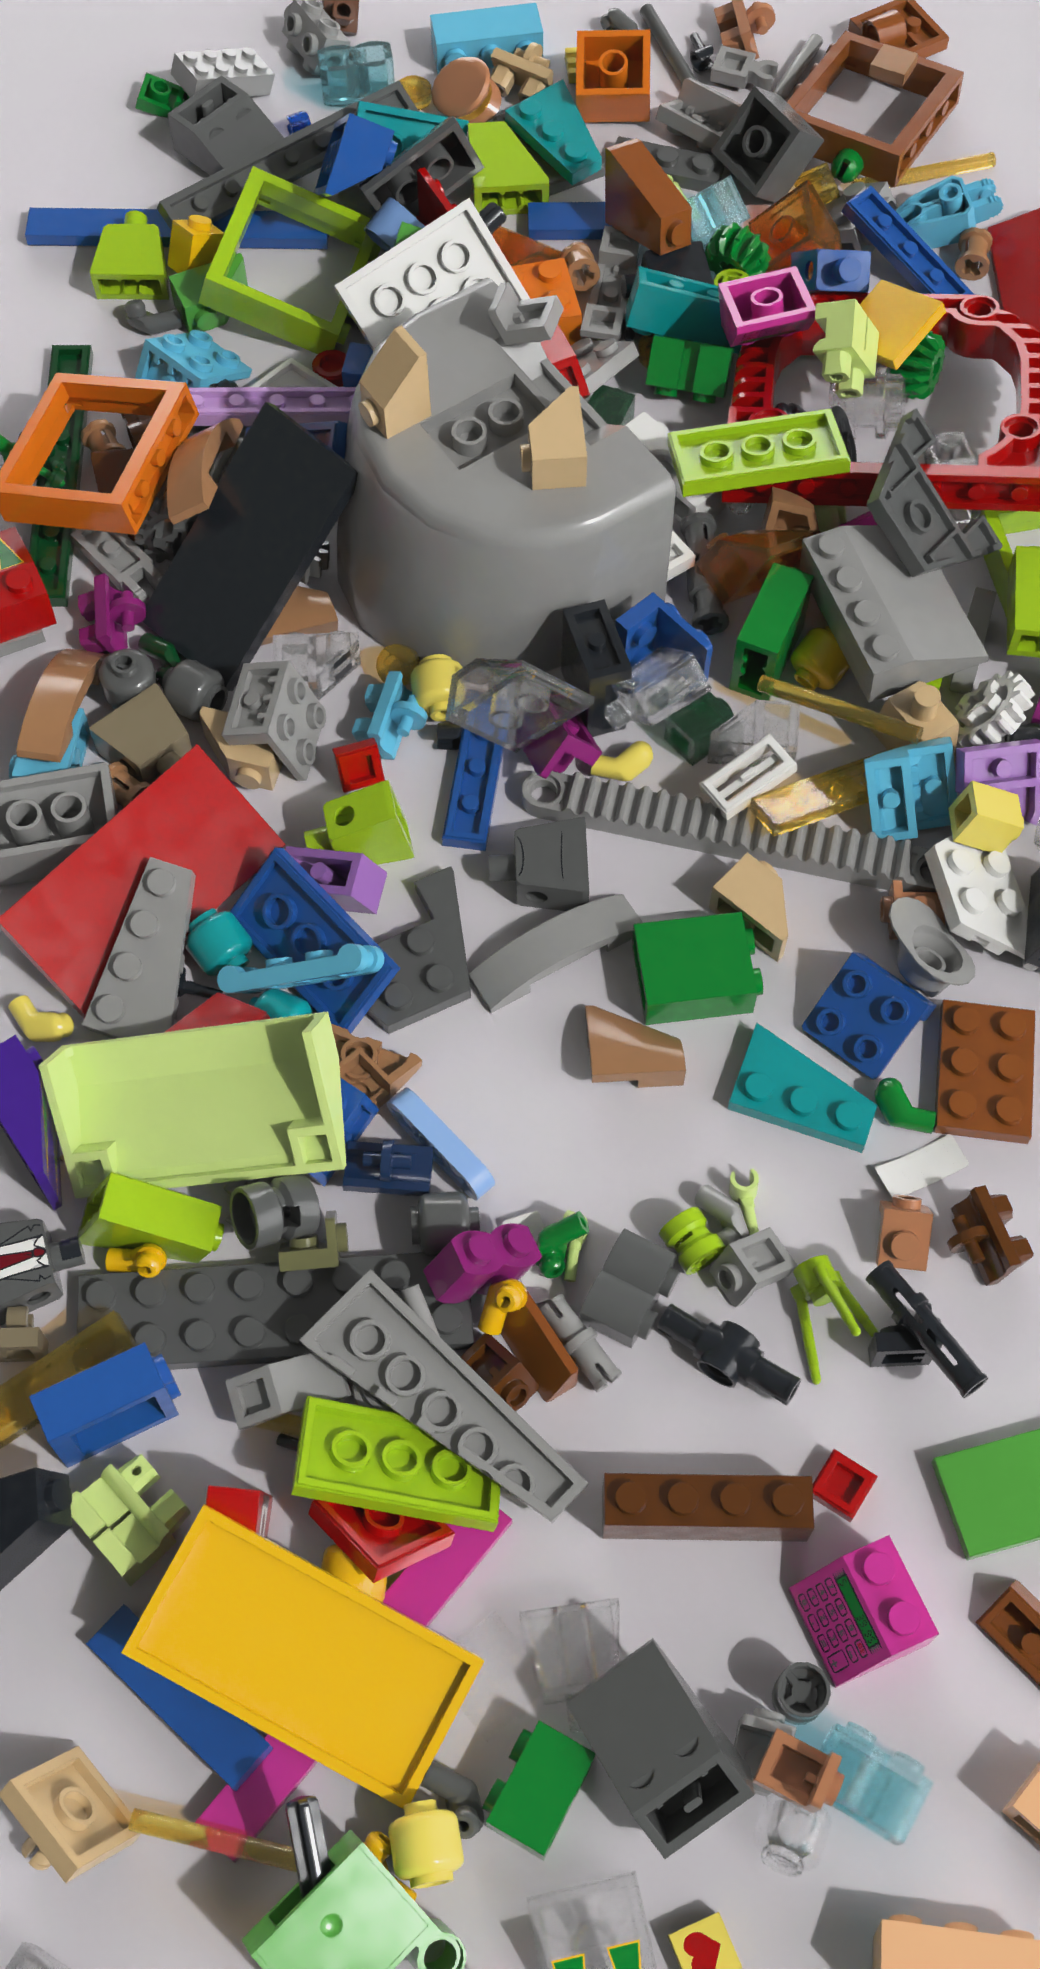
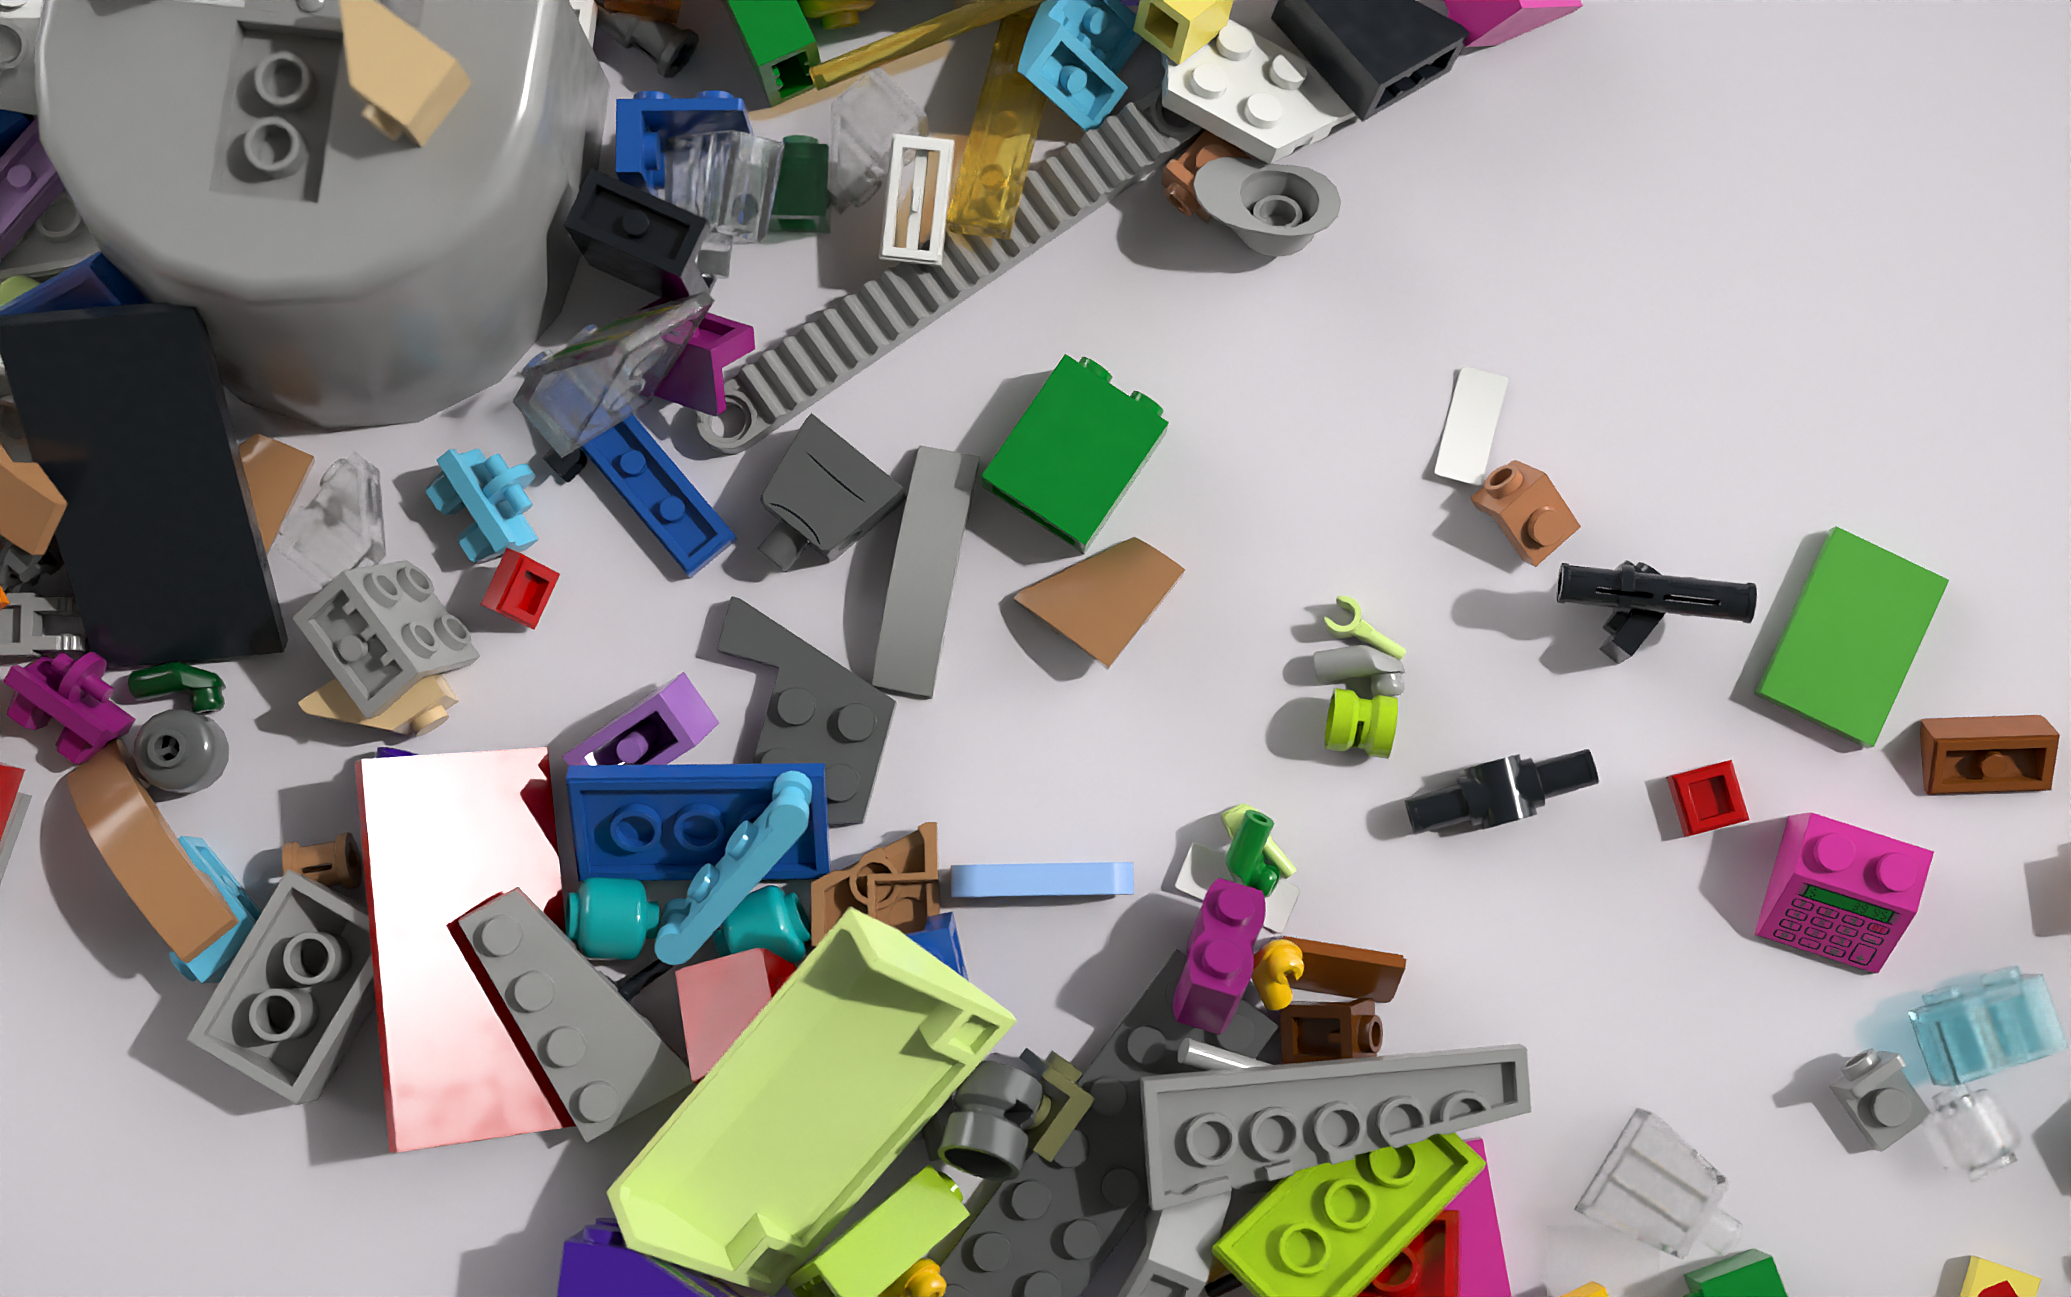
camera: 50 degrees left, 20 degrees up
(40, 1025) = (539, 1182): light yellow arm -> none
(142, 735) = (276, 791): dark tan torso -> none
(192, 686) = (260, 688): dark grey head -> none
(365, 823) = (628, 639): lime torso -> none
(388, 1168) = (1030, 957): dark blue hips -> none
(396, 386) = (148, 184): tan slope -> none
(397, 658) = (426, 435): clear yellow tile -> none
(432, 684) = (493, 423): light yellow head -> none
(440, 1219) = (1135, 952): dark grey head -> none
(580, 1343) = (1366, 923): light grey pin -> none
(626, 765) = (773, 298): light yellow arm -> none
(628, 1289) = (1356, 828): dark grey brick -> none
(661, 1748) = (1825, 1196): dark grey slope -> none
(707, 1507) = (1631, 949): reddish brown brick -> none
(751, 1265) = (1434, 687): light grey bracket -> none
(759, 894) = (1058, 319): tan slope -> none
(799, 1095) = (1294, 473): teal wing -> none
(799, 1772) = (1949, 1091): nougat bracket -> none
(809, 1688) = (1879, 1015): dark grey wheel -> none
(824, 1285) = (1510, 636): lime plant -> none
(866, 1014) = (1277, 325): blue bracket -> none
(898, 1109) = (1396, 393): green arm -> none
(984, 1237) = (1598, 439): reddish brown hips -> none
(985, 1072) = (1430, 269): dark orange plate -> none

